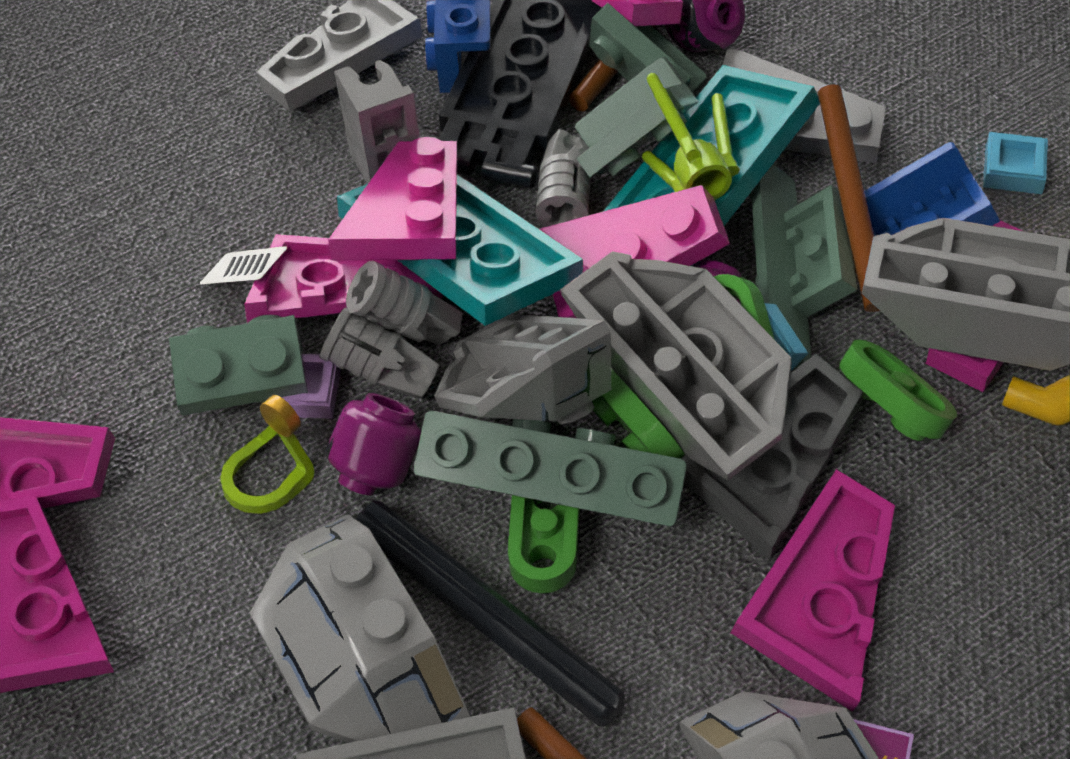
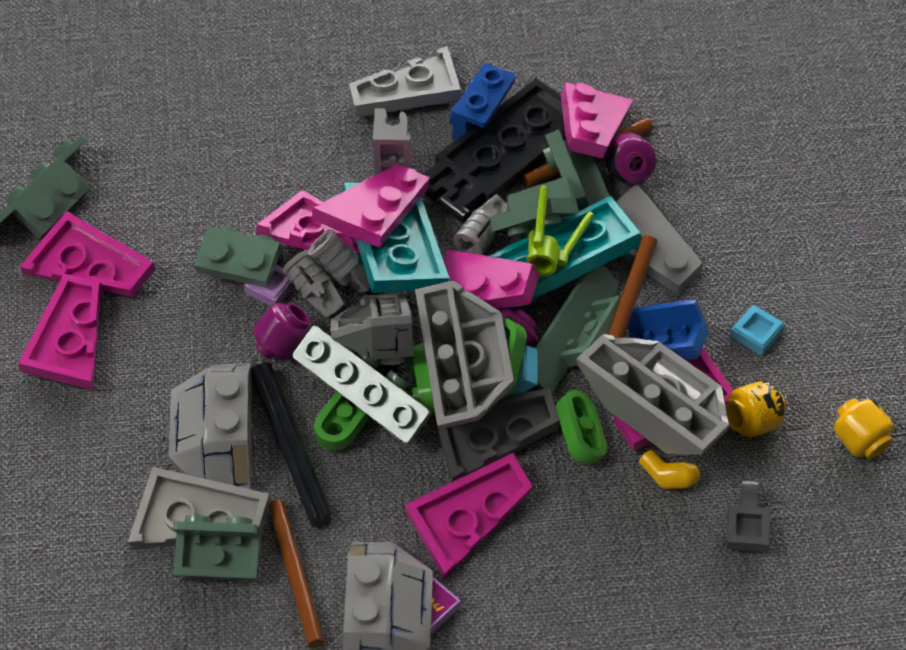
camera: 25 degrees right, 0 degrees up
(243, 265) = (273, 201): white sticker -> none
(281, 421) = (240, 300): lime piece -> none

